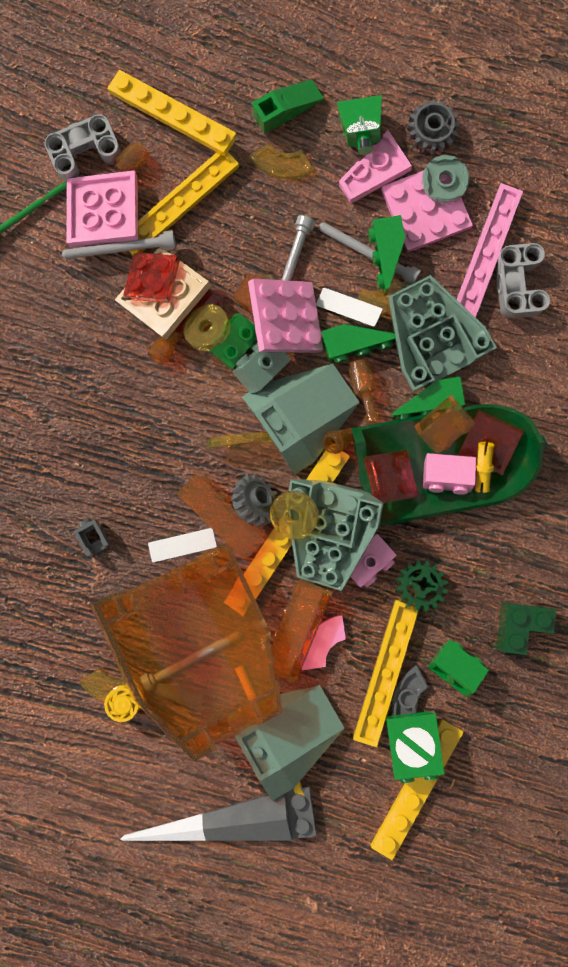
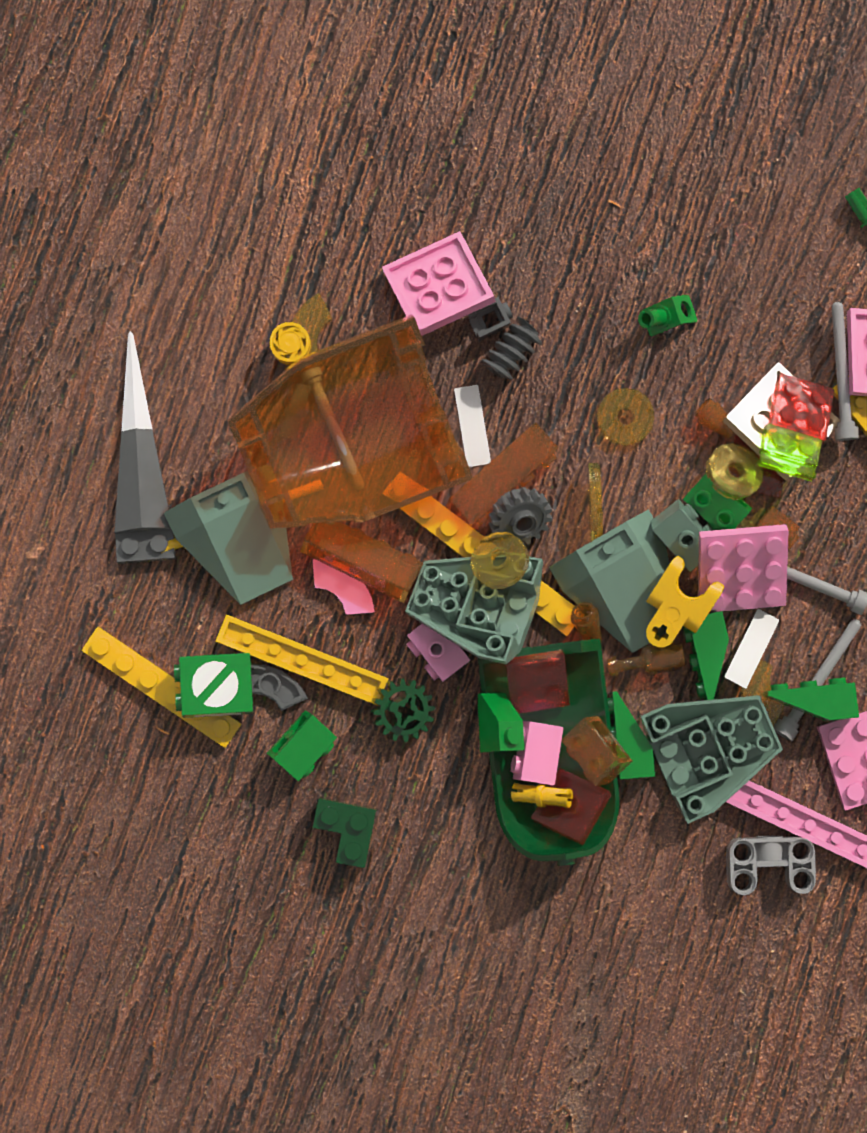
camera: 90 degrees right, 0 degrees up
(65, 581) = (439, 283): none -> bright pink plate
(81, 391) = (667, 315): none -> green bracket
(117, 516) = (512, 349): none -> dark grey piece
(180, 423) = (608, 416): none -> clear yellow tile
(188, 283) = (789, 452): none -> clear neon green plate
(323, 365) = (676, 608): none -> yellow piece
(429, 506) = (499, 724): none -> green slope

